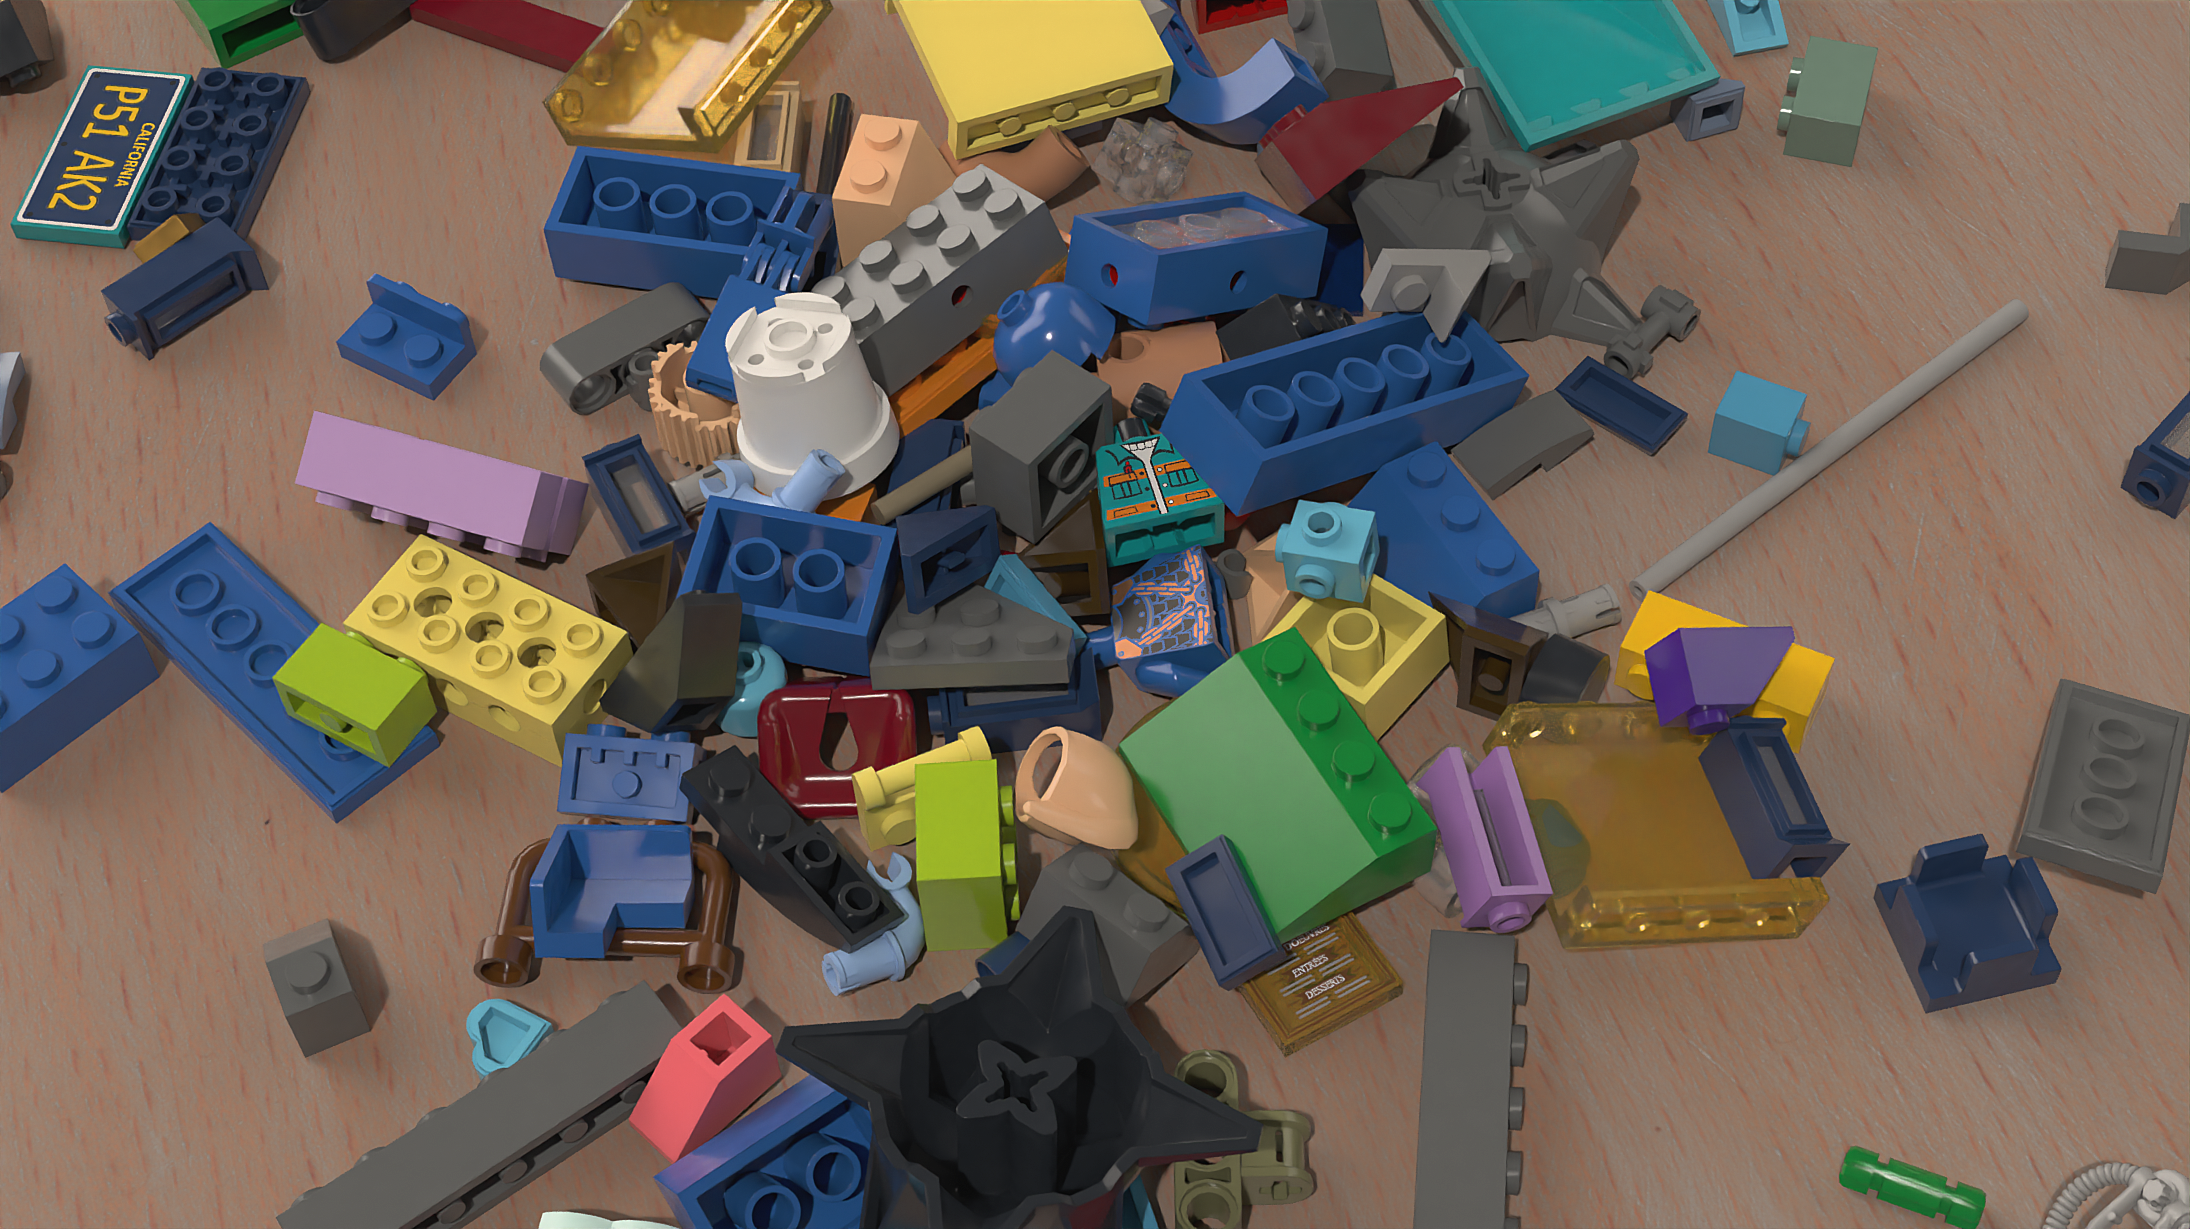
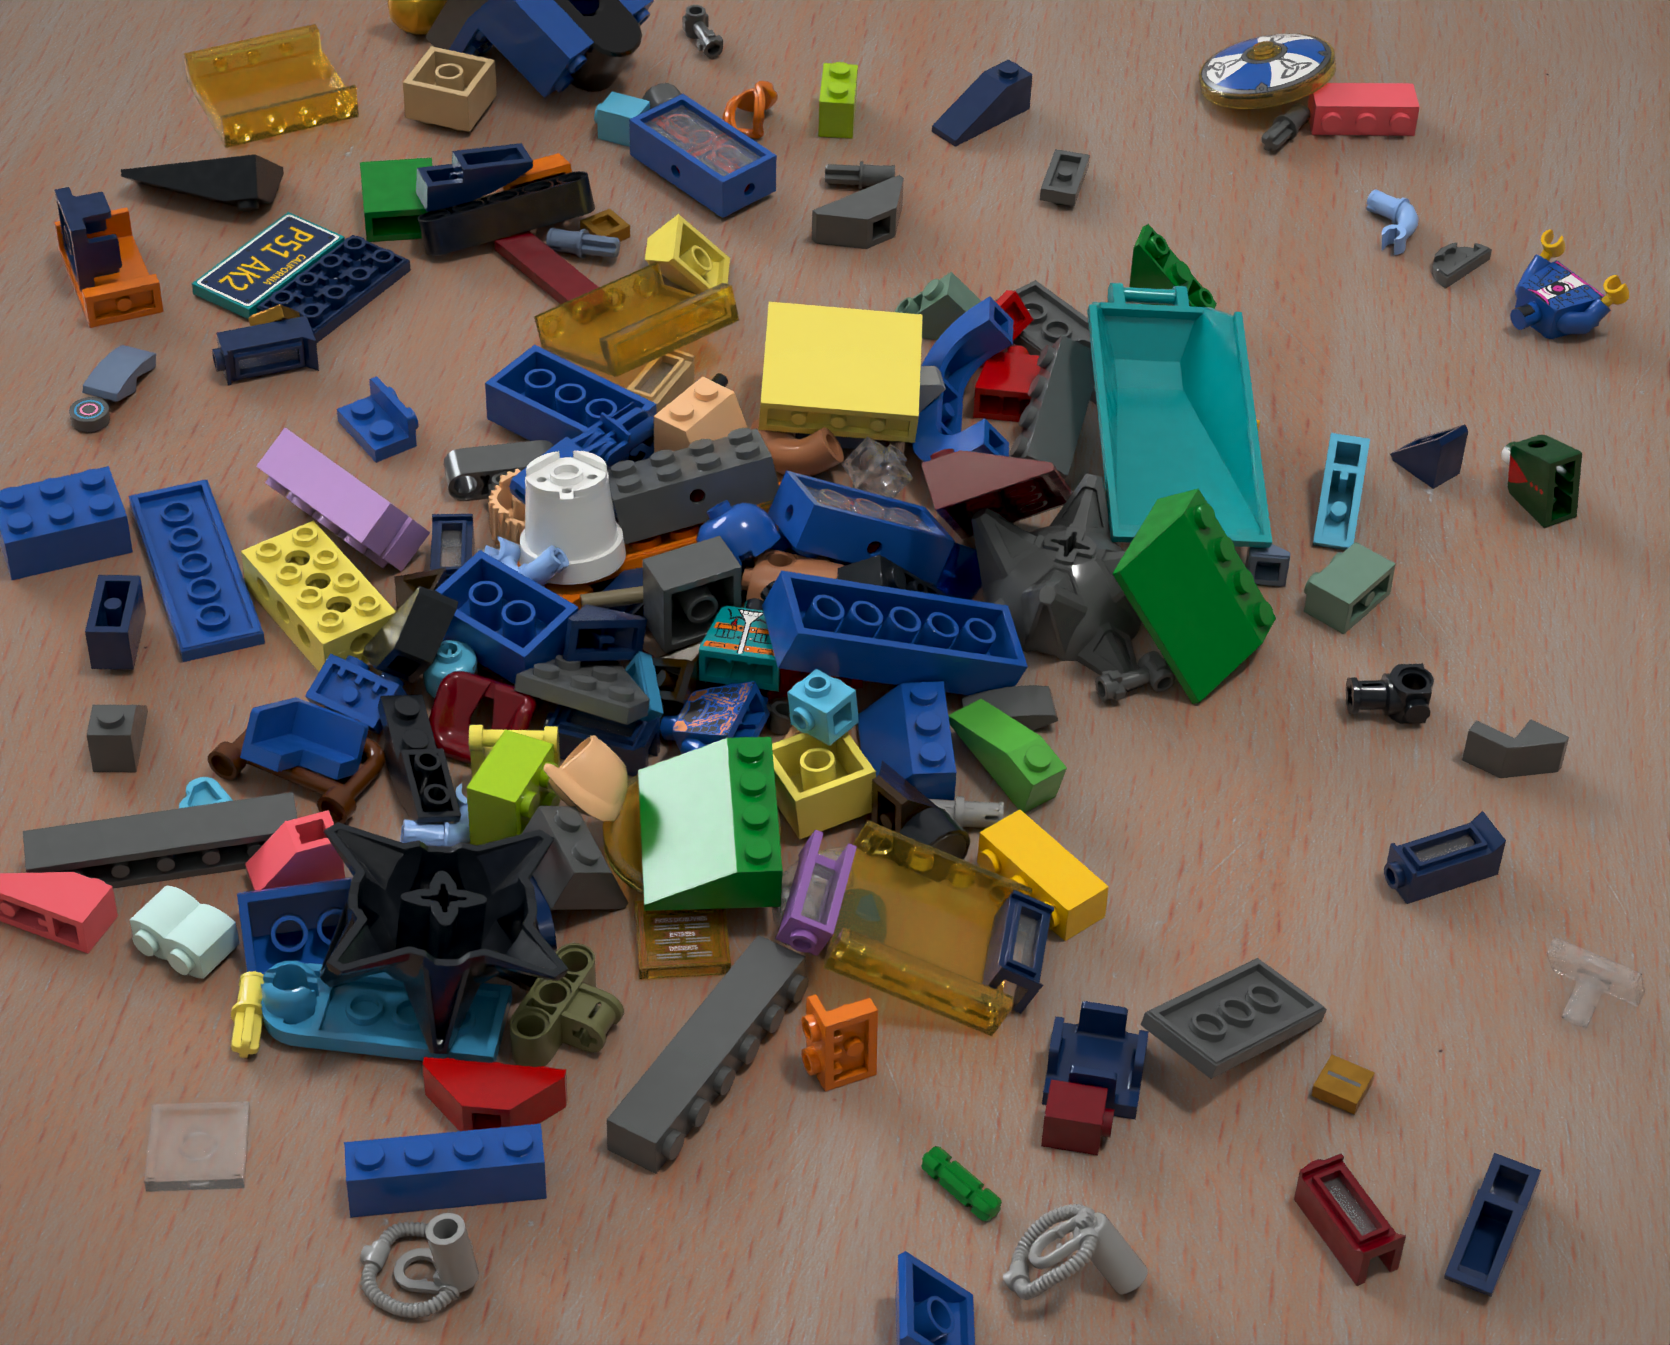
camera: 20 degrees right, 10 degrees down
(214, 807) = (115, 622): none -> dark blue brick
(356, 693) = (228, 592): lime brick -> none
(1225, 912) = (639, 877): dark blue tile -> none
(1426, 282) = (993, 588): light grey slope -> none
(1573, 507) = (1010, 753): none -> bright green slope
(1620, 405) = (1088, 712): dark blue tile -> none
(1640, 1058) = (840, 1042): none -> orange bracket
(1689, 183) = (1193, 592): none -> green slope
(1712, 673) = (1015, 856): dark purple slope -> none
(1759, 424) = (1164, 750): dark azure brick -> none
(1828, 450) = (1210, 783): light grey piece -> none
(1989, 228) = (1400, 694): none -> black connector
(1999, 1021) = (1076, 1117): none -> dark red brick

